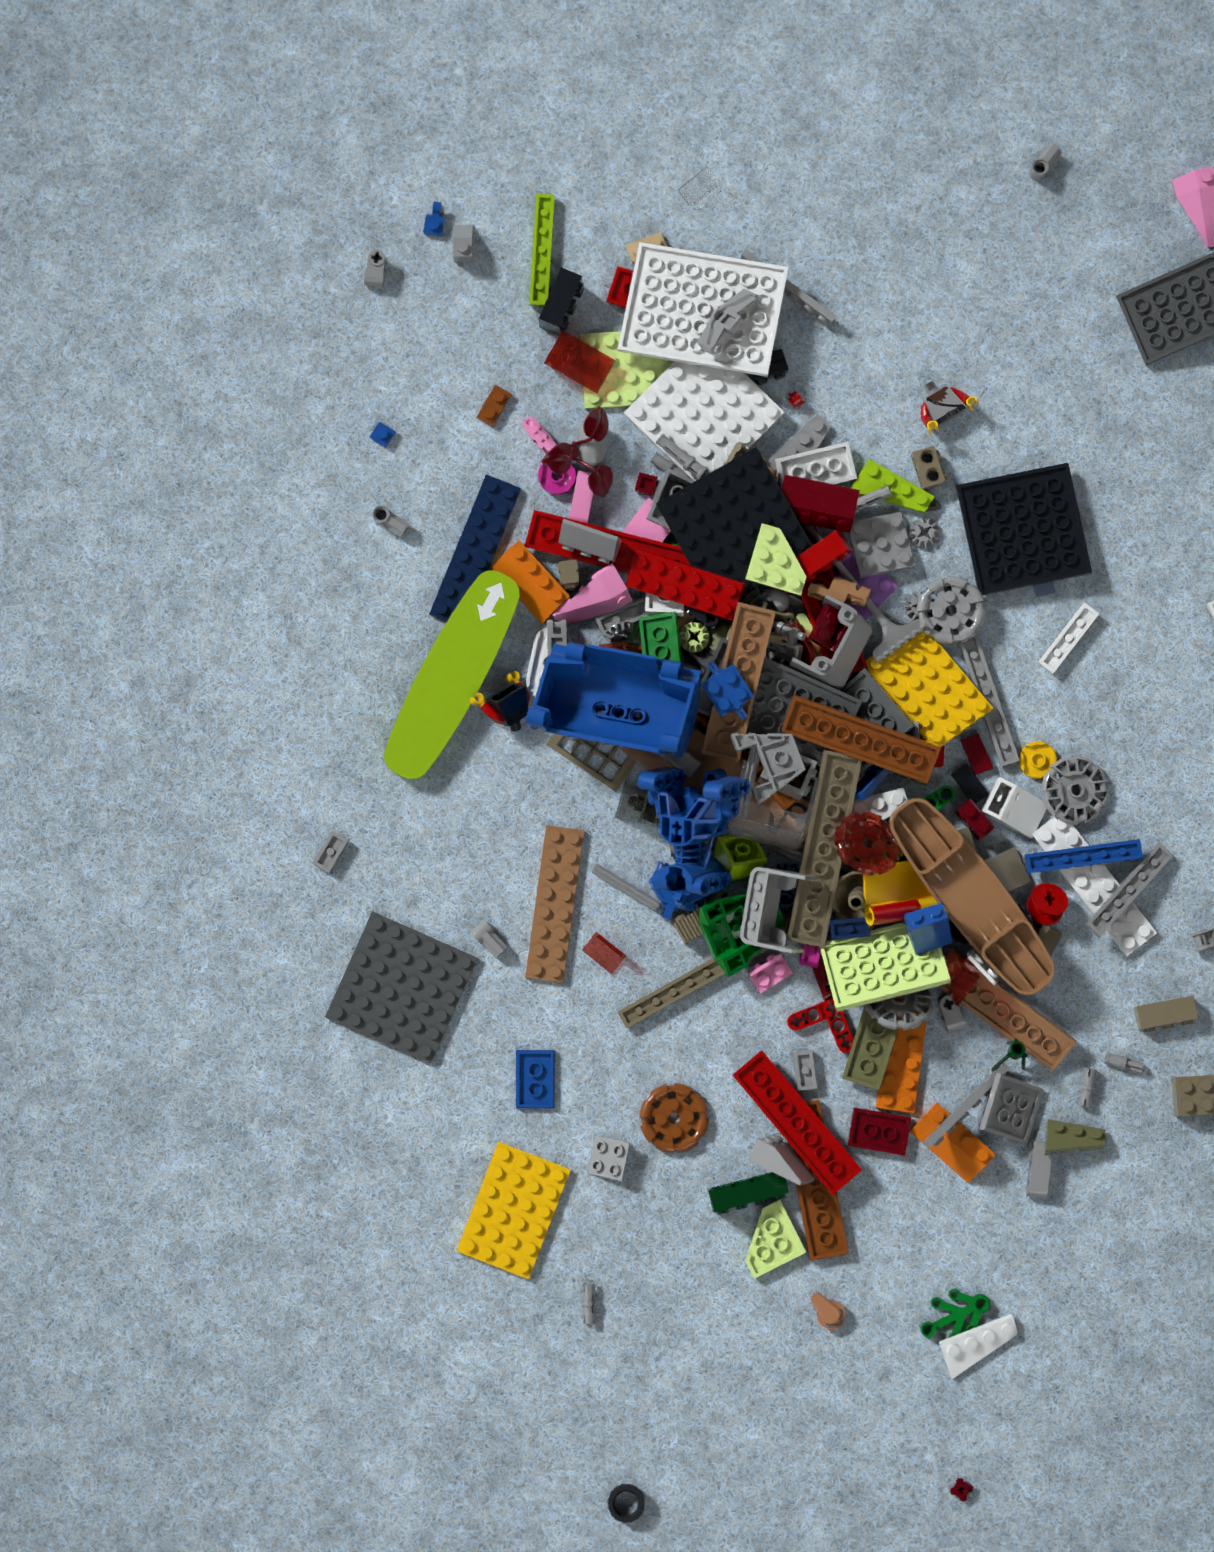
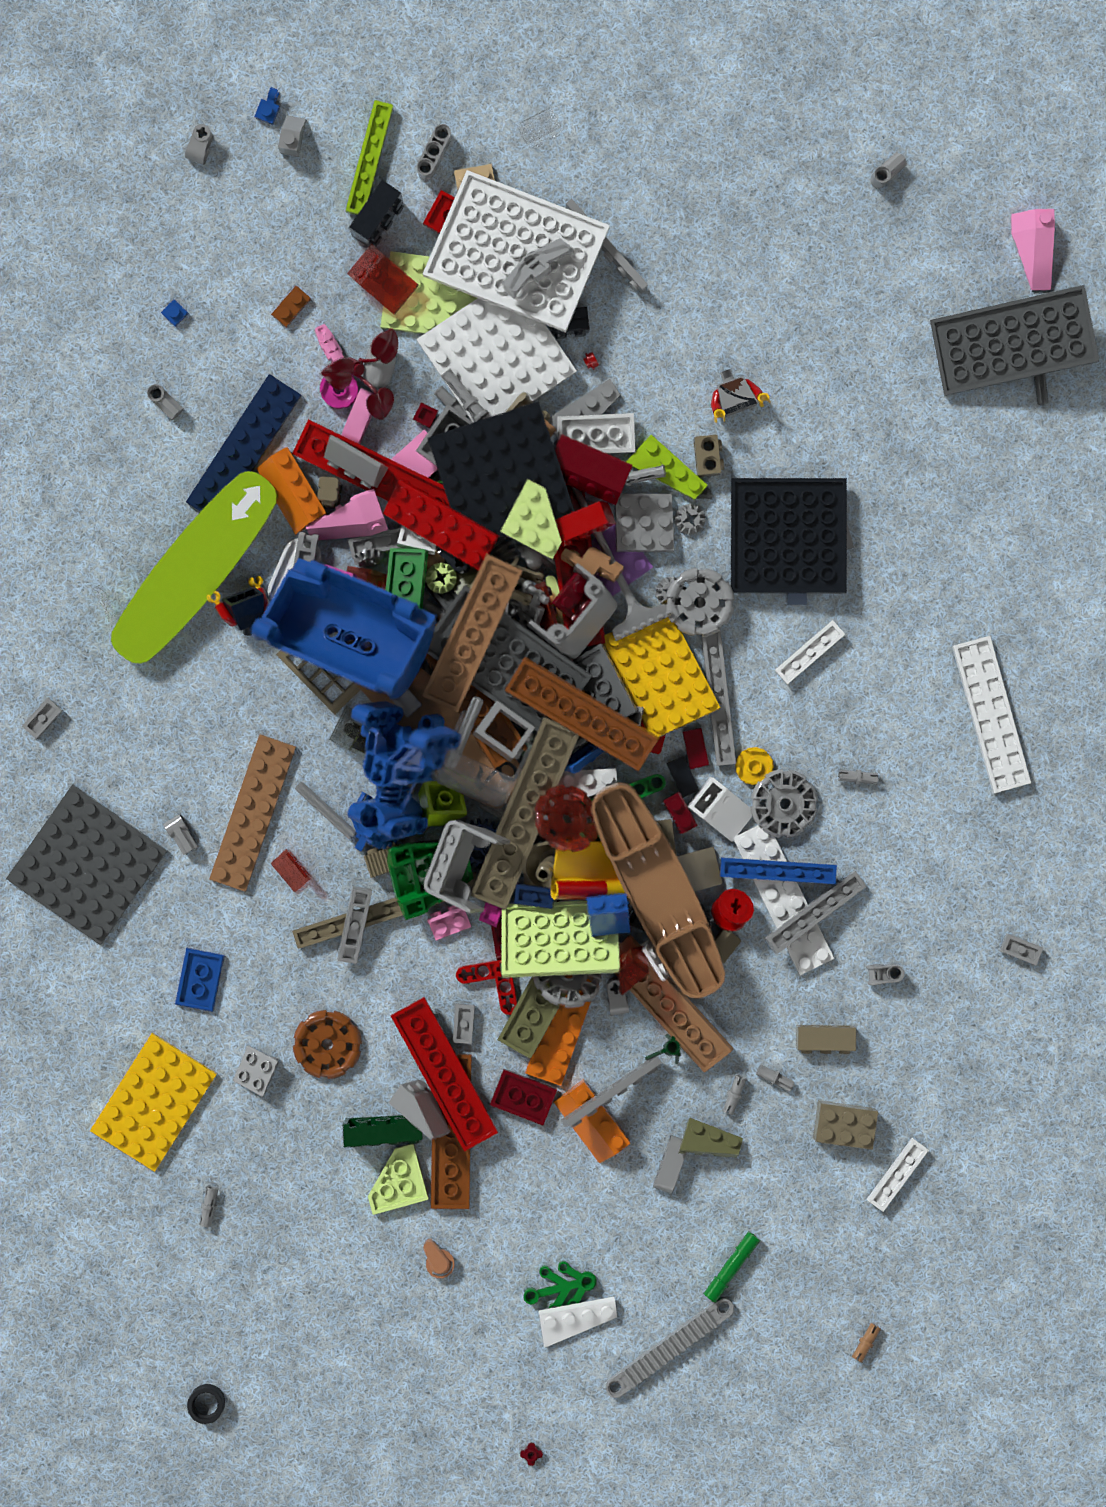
camera: 15 degrees right, 5 degrees up
(603, 223) = (434, 143): none -> light grey beam
(678, 993) = (354, 925): none -> light grey hinge
(727, 690) = (459, 639): blue plate -> none
(779, 759) = (496, 718): light grey wing -> none
(1011, 1108) = (655, 1102): light grey plate -> none
(1077, 1354) = (669, 1347): none -> light grey gear
(1121, 1260) = (731, 1267): none -> green piece
(1142, 750) = (858, 777): none -> light grey pin

